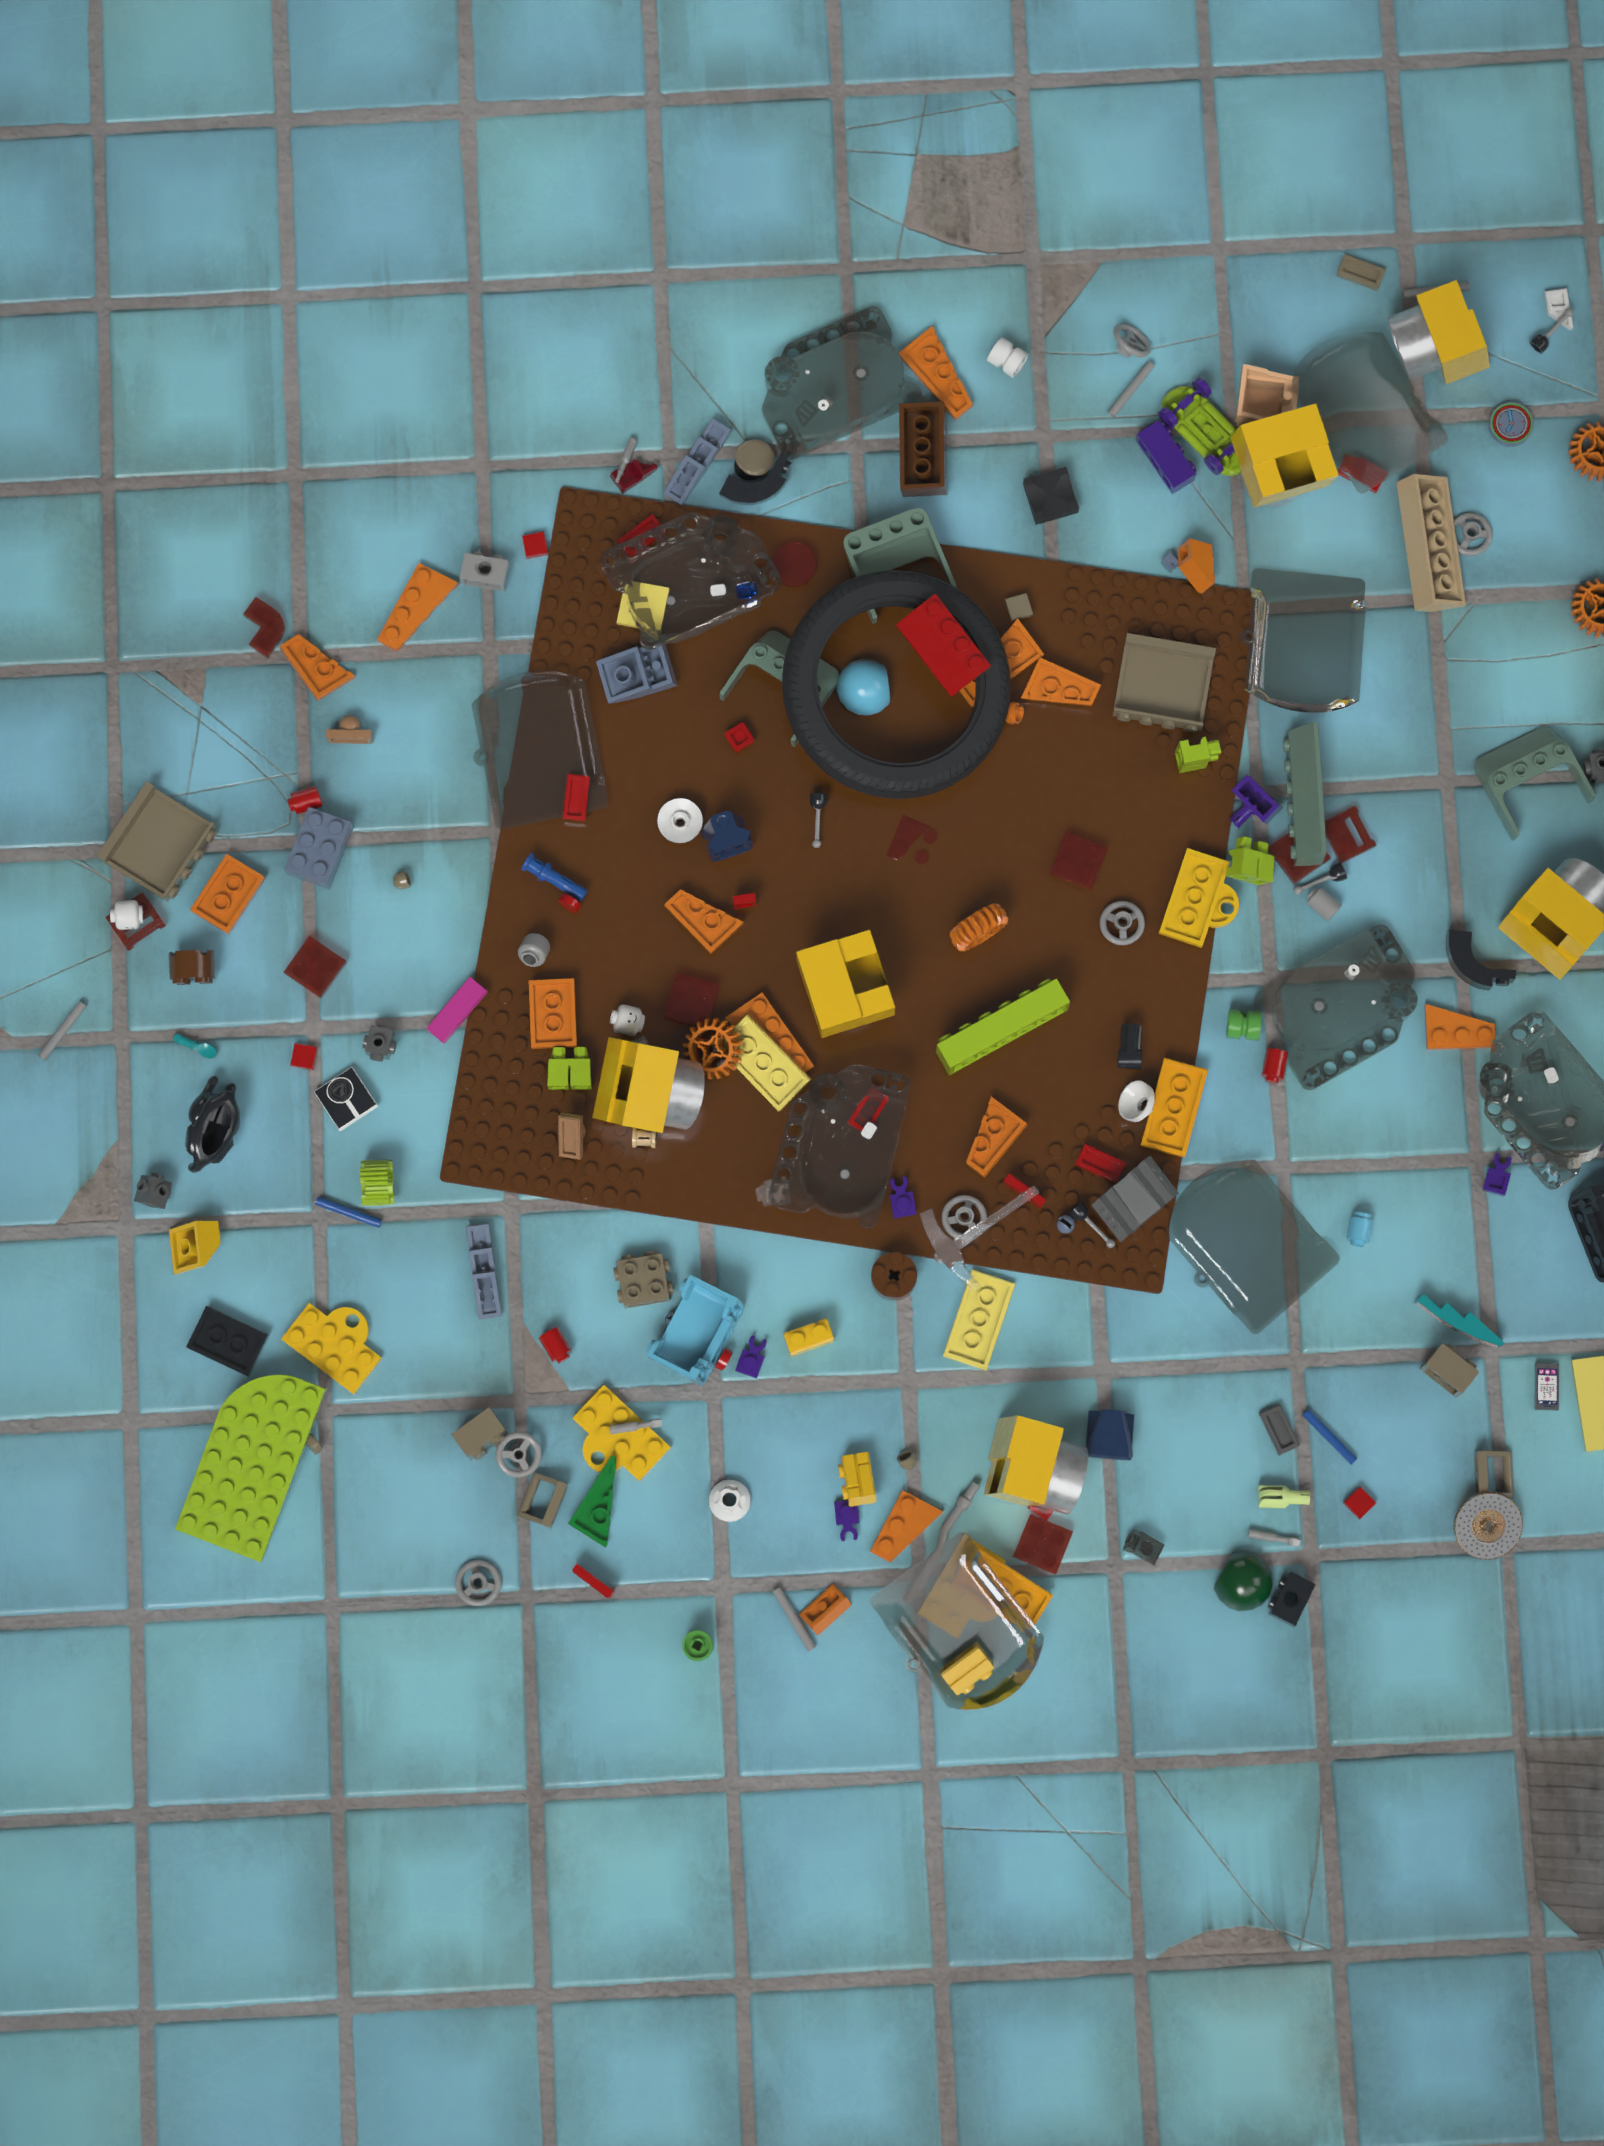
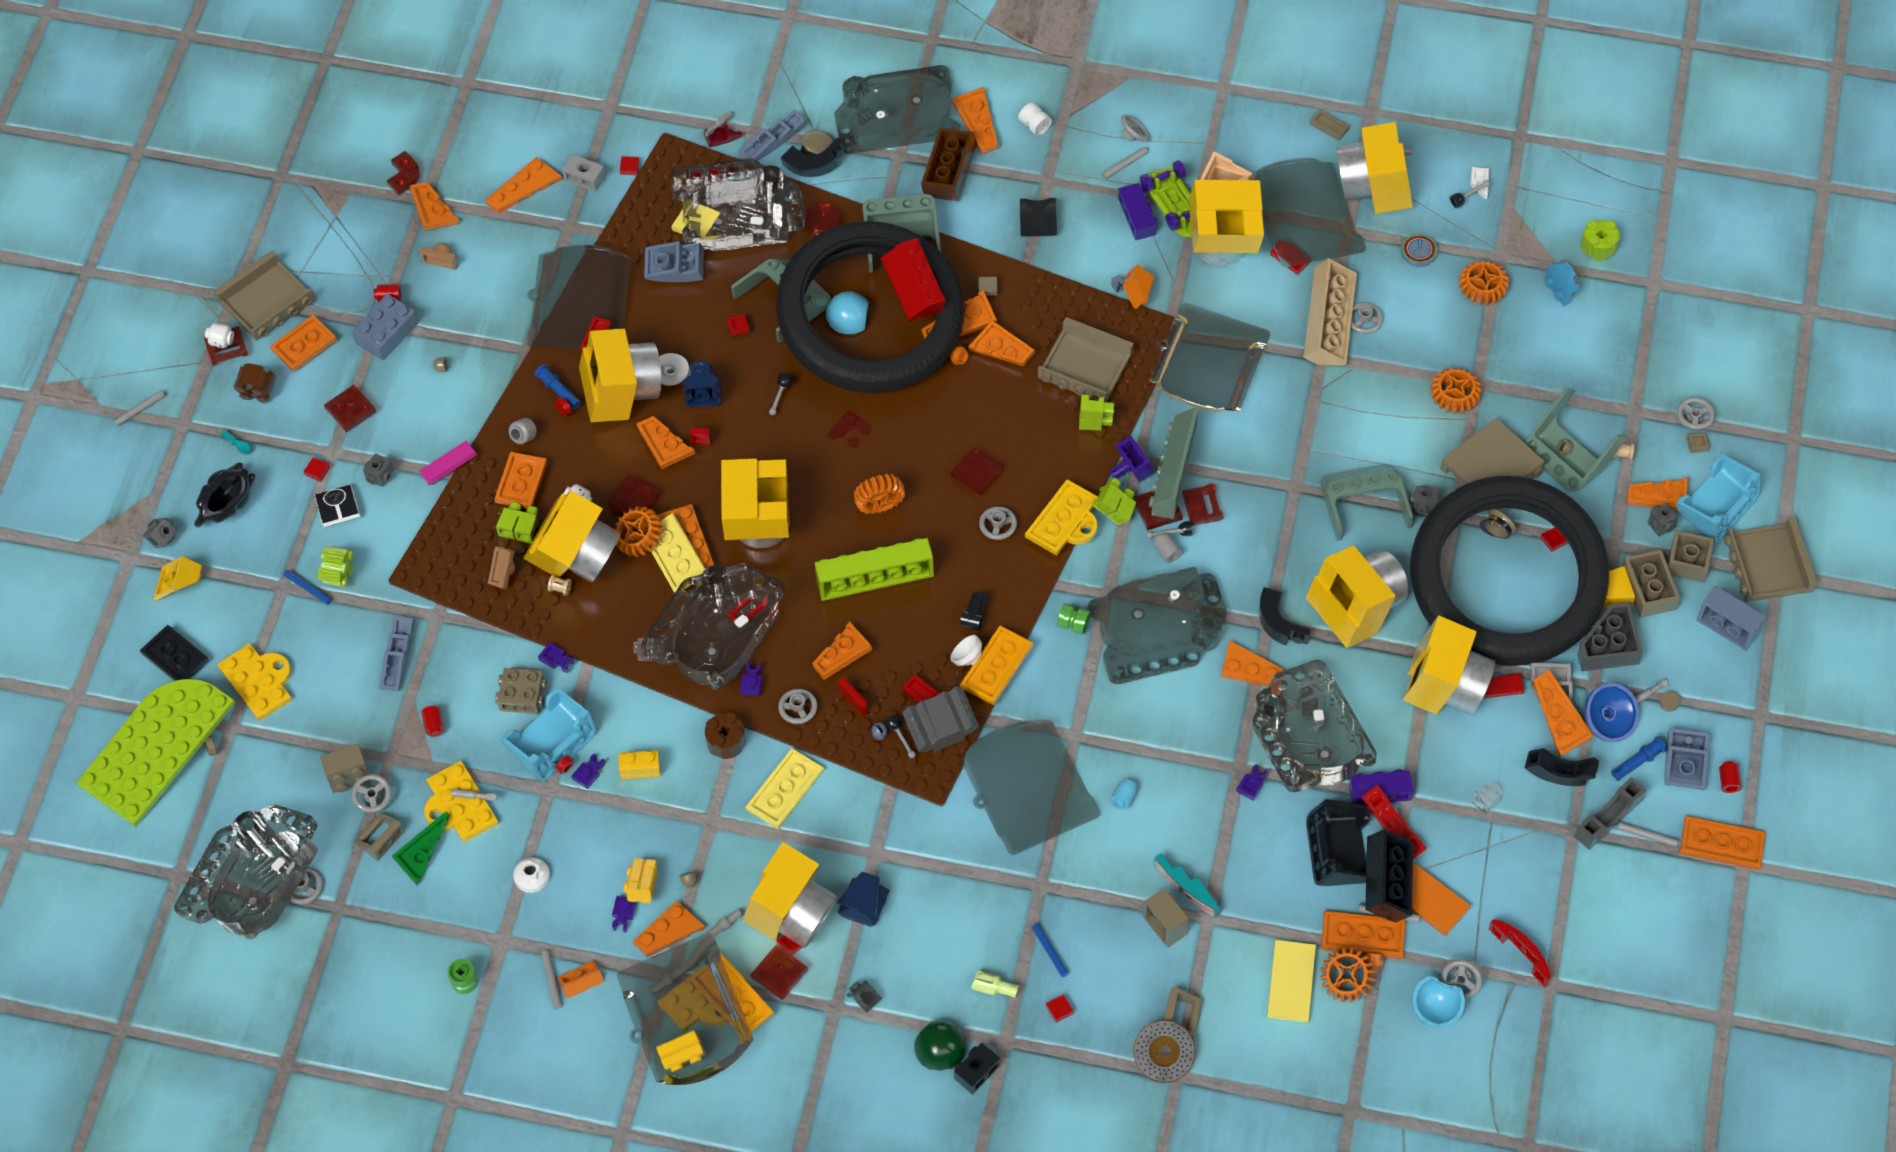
camera: 15 degrees right, 20 degrees down
(415, 1600) = (239, 880): none -> clear smoke piece
(592, 1581) = (395, 906): red tile -> none
(627, 853) = (617, 374): none -> yellow piece
(665, 1226) = (554, 656): none -> dark purple plate
(746, 590) = (776, 220): clear blue tile -> none
(949, 1250) = (777, 726): clear piece -> none
(1272, 1537) = (976, 1017): light grey piece -> none
(1274, 1065) = (1090, 655): red brick -> none
(1279, 1429) = (1008, 934): dark grey tile -> none
(1547, 1387) = (1247, 956): tile -> none

